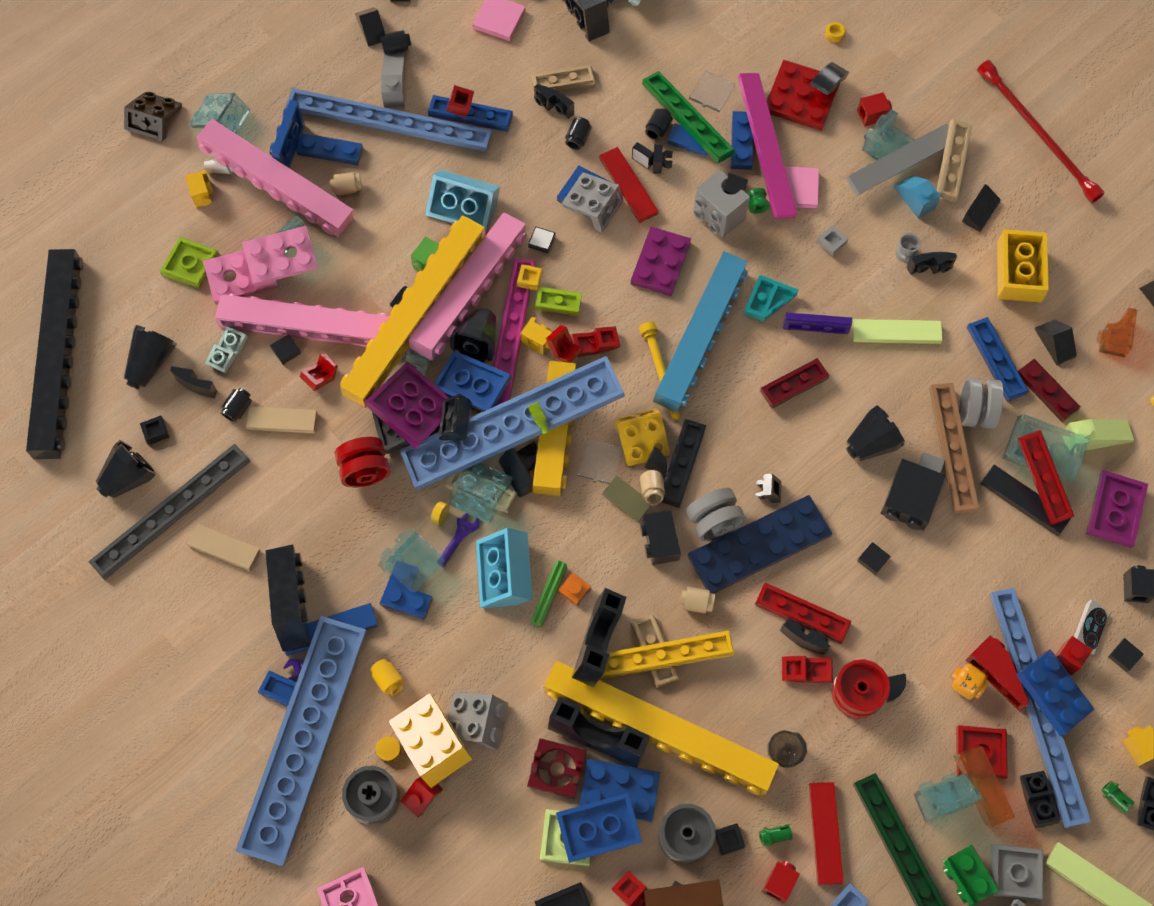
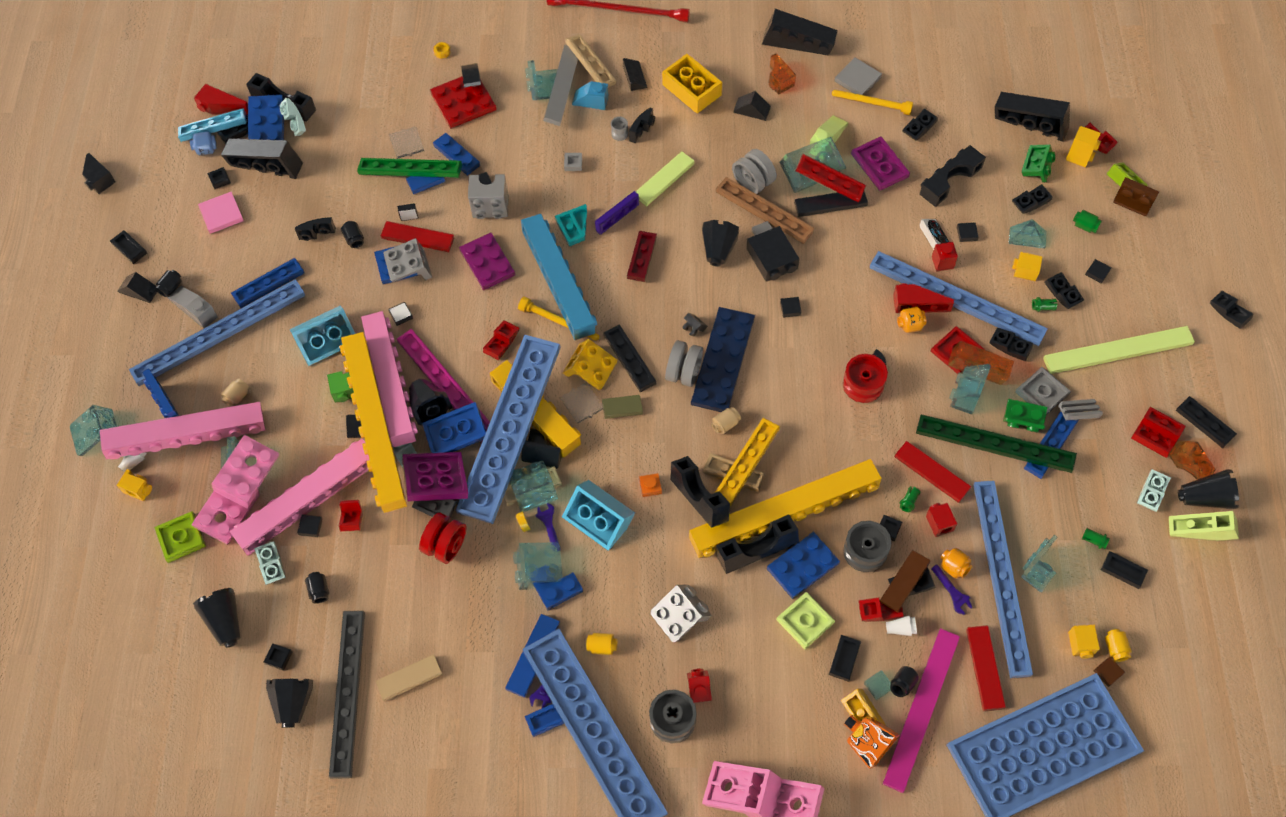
camera: 45 degrees left, 5 degrees down
(54, 355) = (151, 679): black brick -> none
(148, 115) = (42, 474): dark brown bracket -> none
(189, 380) = (265, 605): black slope -> none
(281, 419) = (357, 568): tan tile -> none
(287, 597) = (489, 659): black wedge -> none
(329, 149) = (197, 384): blue plate -> none
(388, 749) = (649, 683): yellow tile -> none
(430, 740) = (671, 647): brick -> none
(455, 418) = (470, 458): black slope -> none
(460, 101) = (257, 277): red brick -> none
(529, 277) = (419, 339): yellow tile -> none
(535, 336) = (464, 368): yellow brick -> none
(535, 780) = (758, 570): dark red piece -> none
(539, 417) = (524, 405): lime piece -> none
(549, 593) = (639, 502): bright green axle -> none
(558, 301) = (452, 337): lime plate -> none
(562, 345) = (487, 358): red bracket -> none
(565, 78) = (306, 212): tan tile -> none
(598, 827) = (818, 593): blue plate -> none
(652, 487) = (630, 385): tan brick -> none
(656, 461) = (616, 370): black tile -> none
(658, 123) = (396, 186): black brick -> none
(659, 158) = (422, 207): black tile -> none
(661, 537) = (666, 407): black brick -> none
(758, 201) = (510, 176): green wheel -> none
(767, 146) = (476, 142): dark pink tile -> none
(787, 748) = (864, 447): clear smoke hair -> none
(803, 186) = (518, 151): bright pink tile -> none
(803, 612) = (787, 372): red tile -> none
(807, 670) = (825, 398): red slope -> none
(812, 641) = (812, 380): black slope -> none
(872, 107) = (514, 72): red brick -> none
(997, 358) = (728, 143): blue tile -> none
(1048, 390) = (777, 136): dark red plate -> none
(1055, 692) = (958, 282): blue plate -> none

